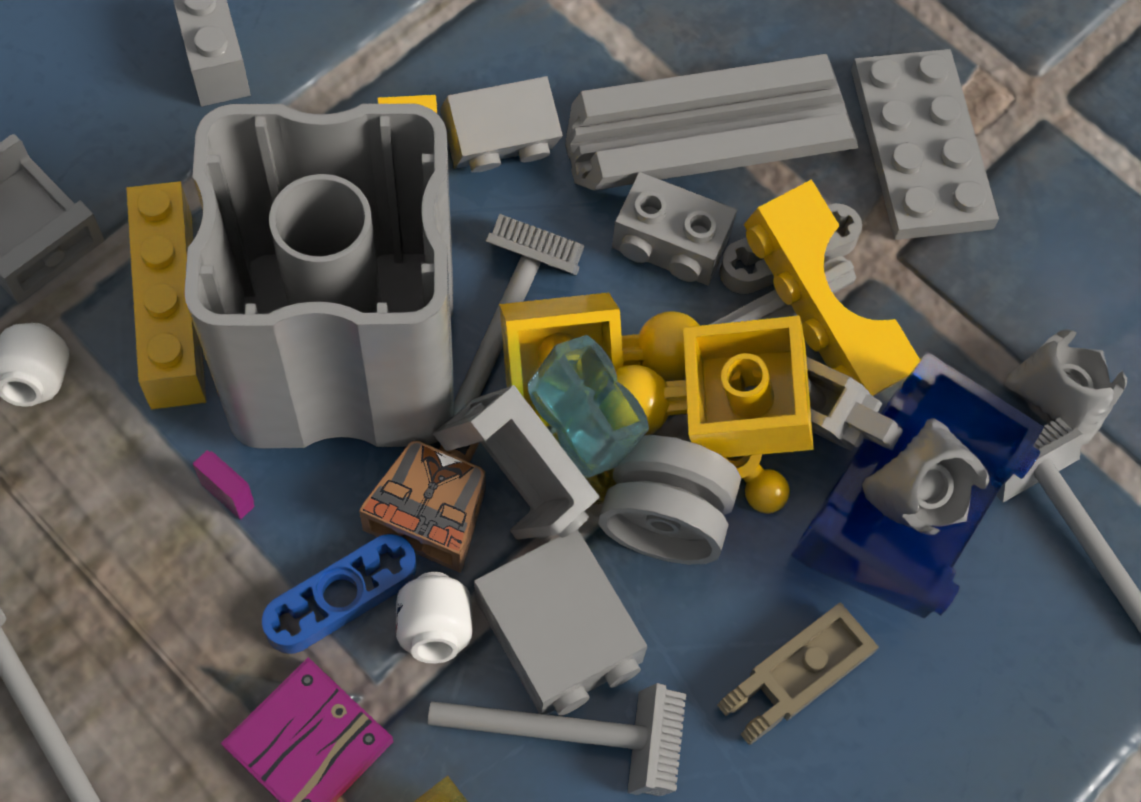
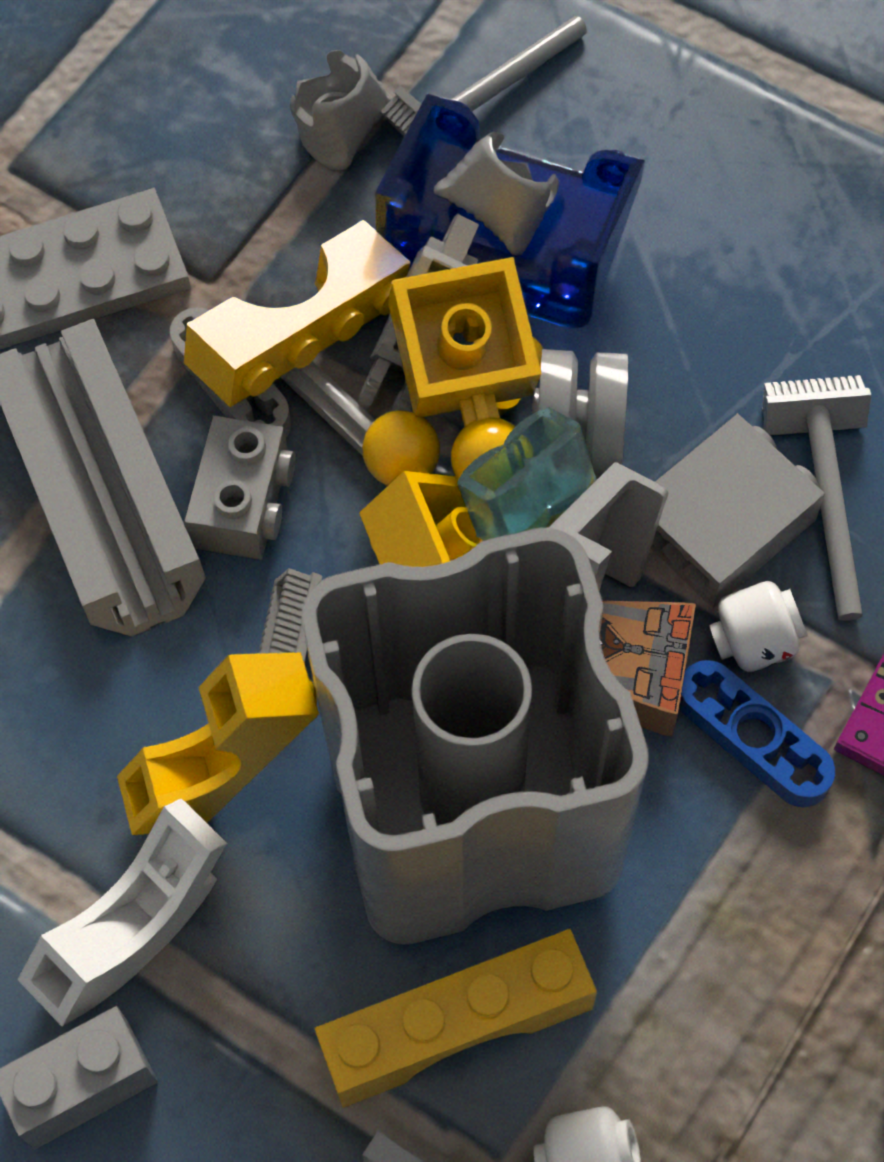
camera: 95 degrees left, 0 degrees up
(224, 484) = (674, 879): magenta tile -> none
(303, 70) = (131, 923): none -> white arch
(501, 124) = (137, 685): light grey brick -> none
(802, 670) = (707, 298): dark tan hinge -> none

